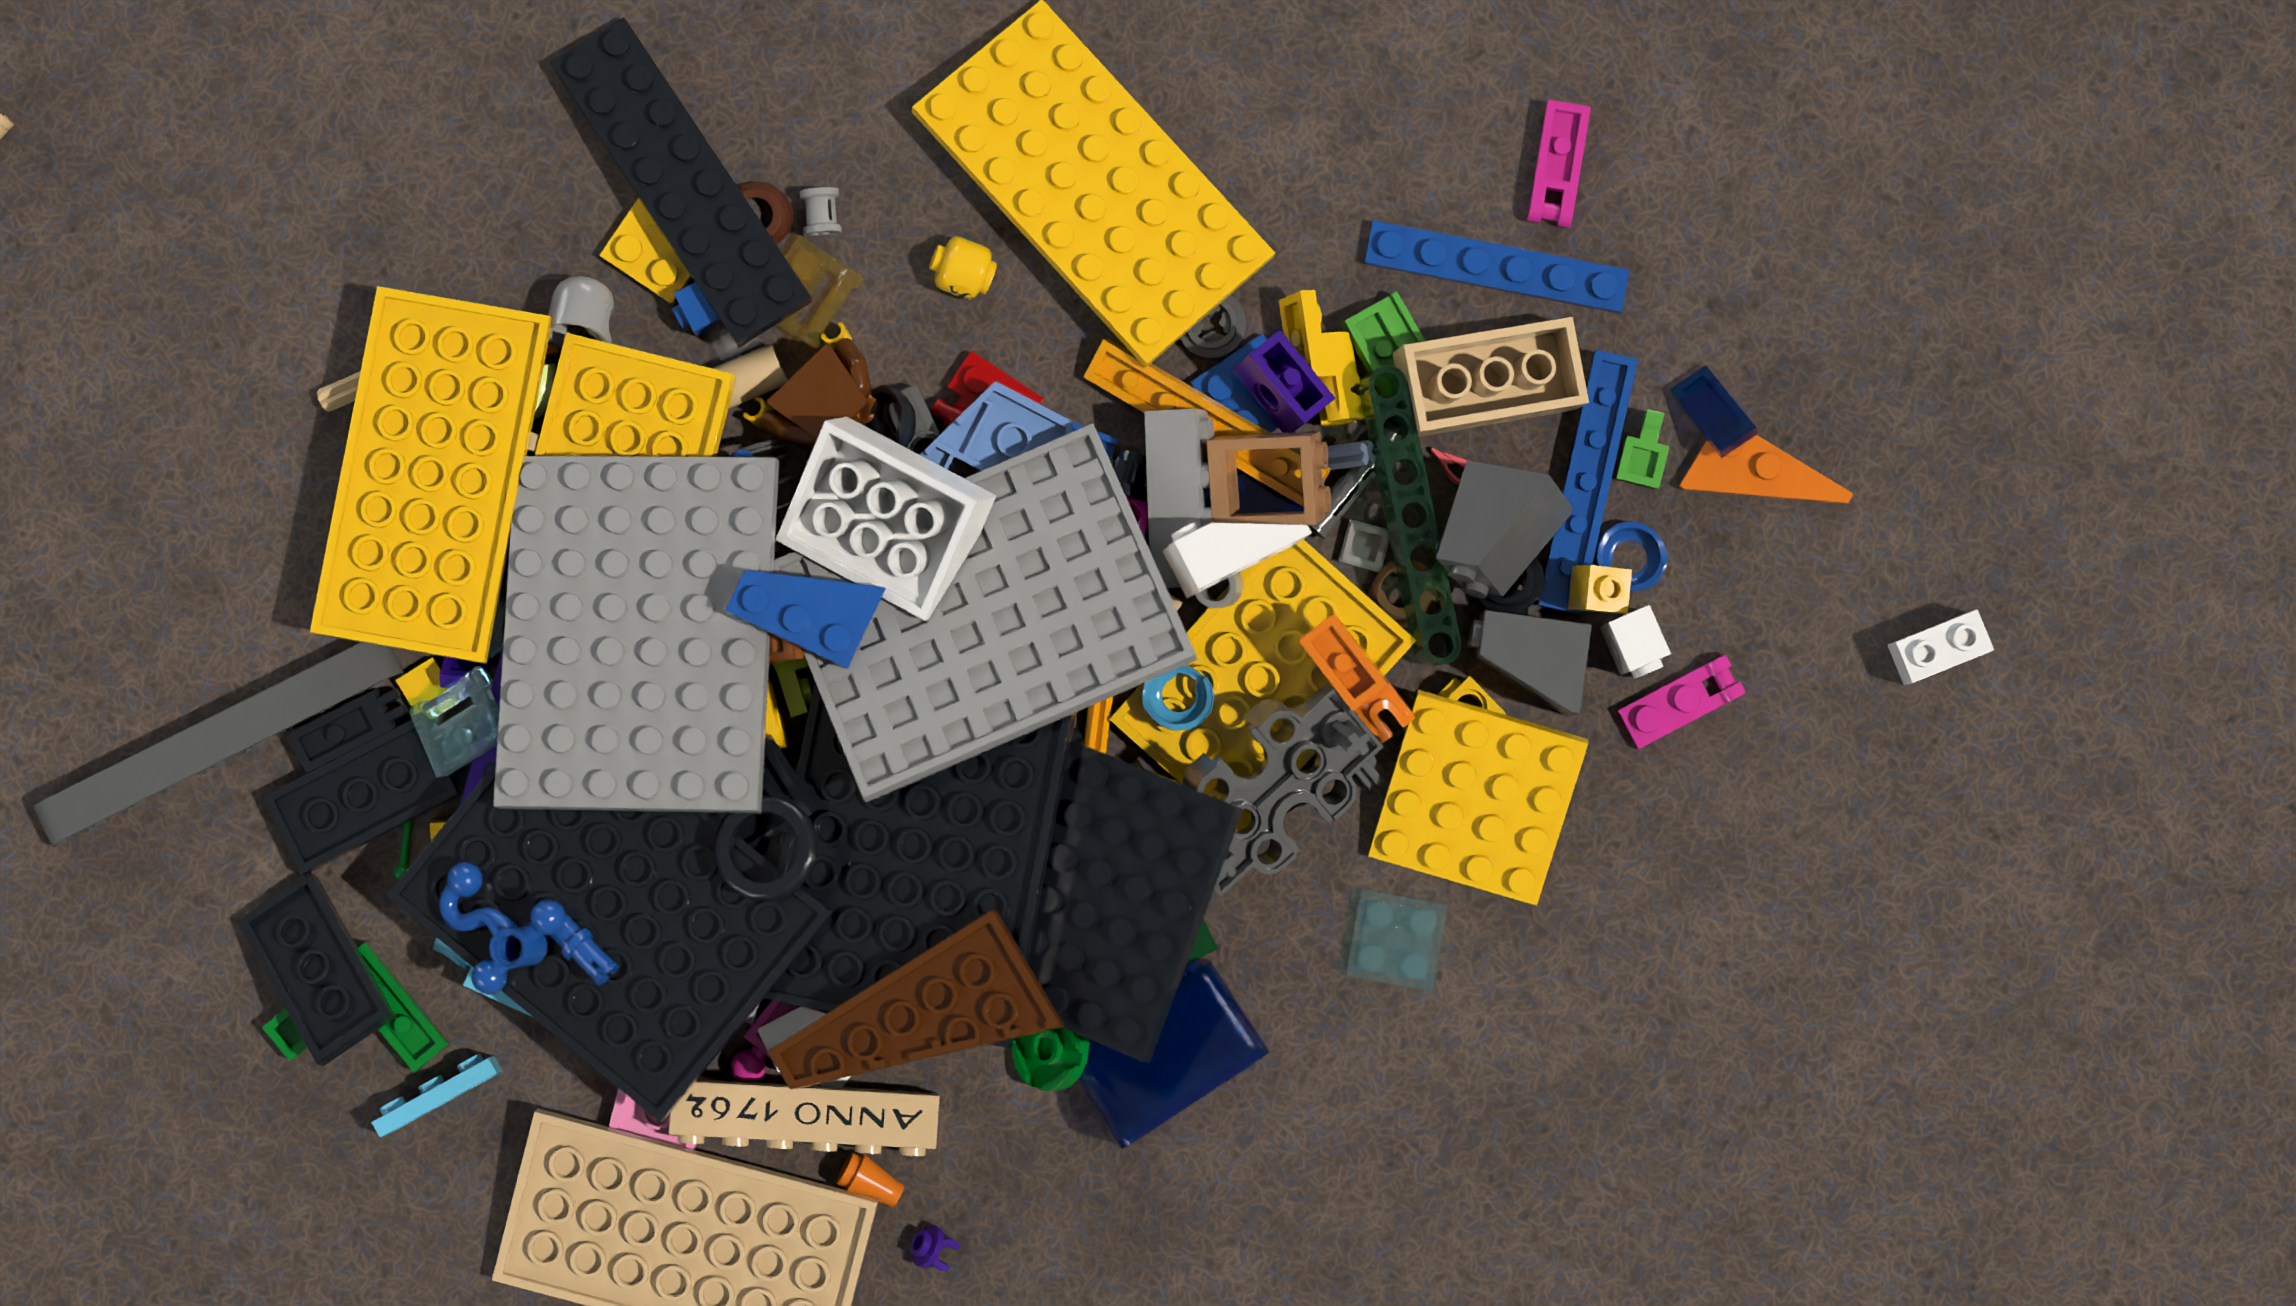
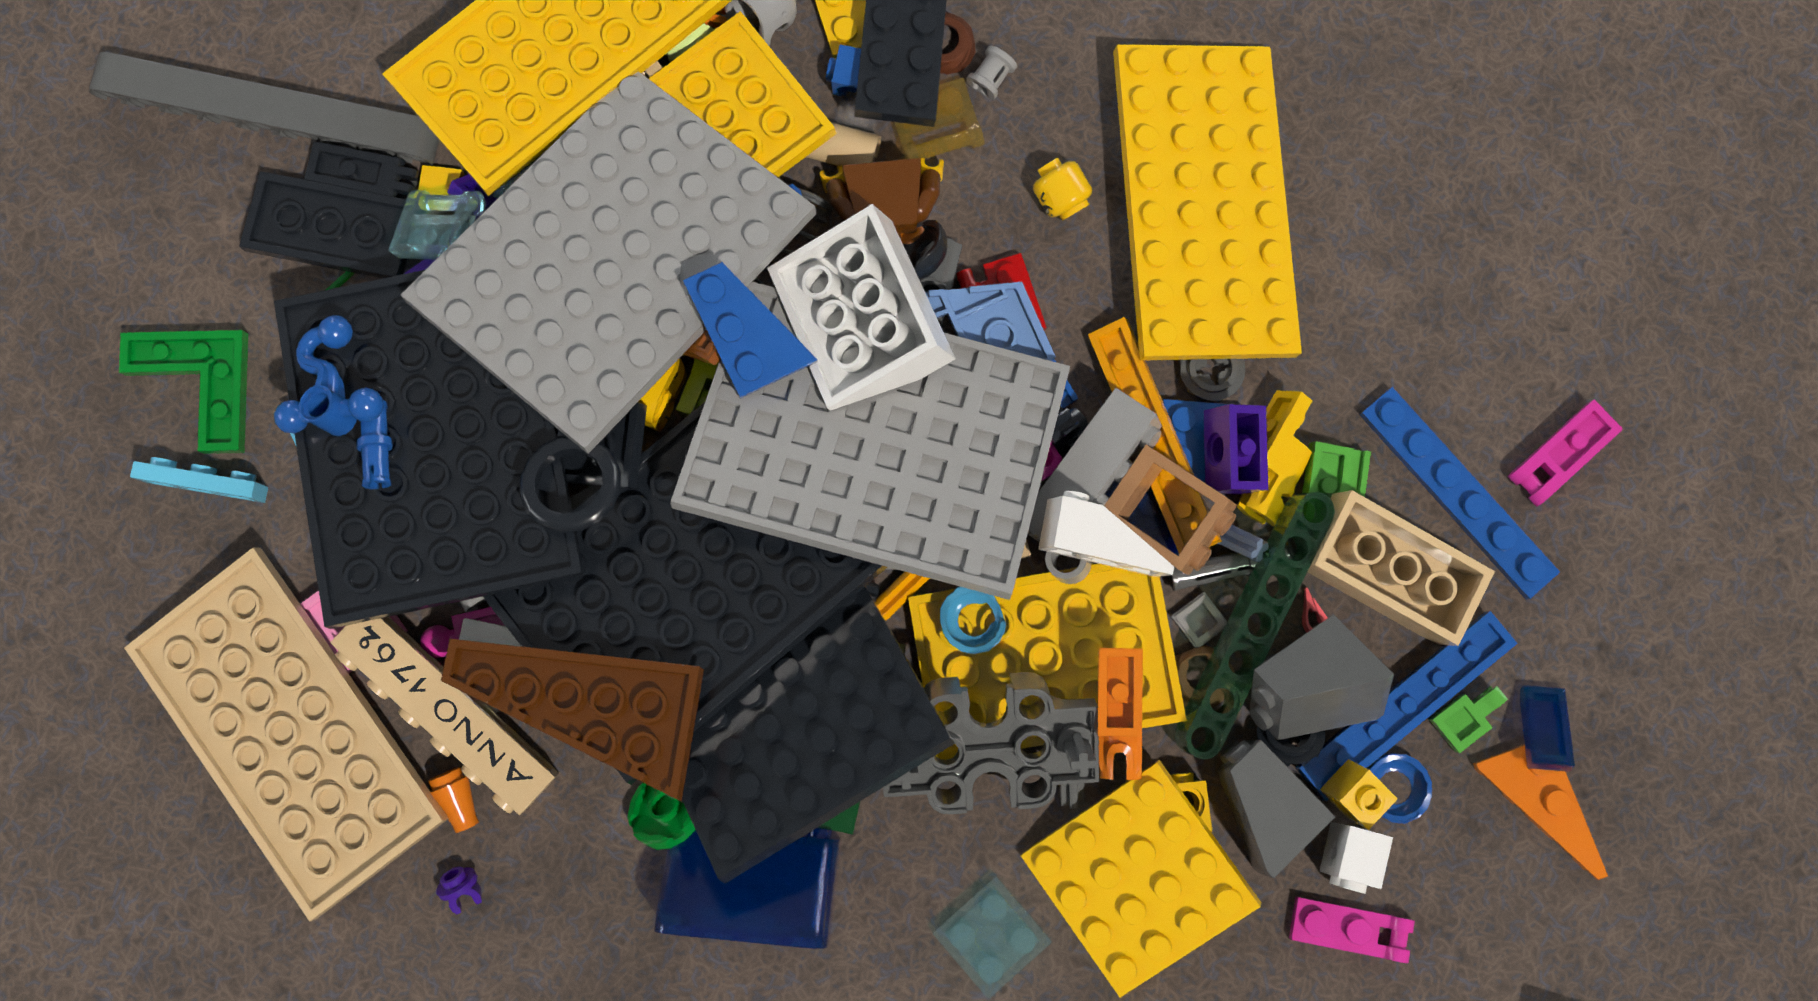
camera: 40 degrees right, 5 degrees down
(316, 969) = (189, 321): black plate -> none

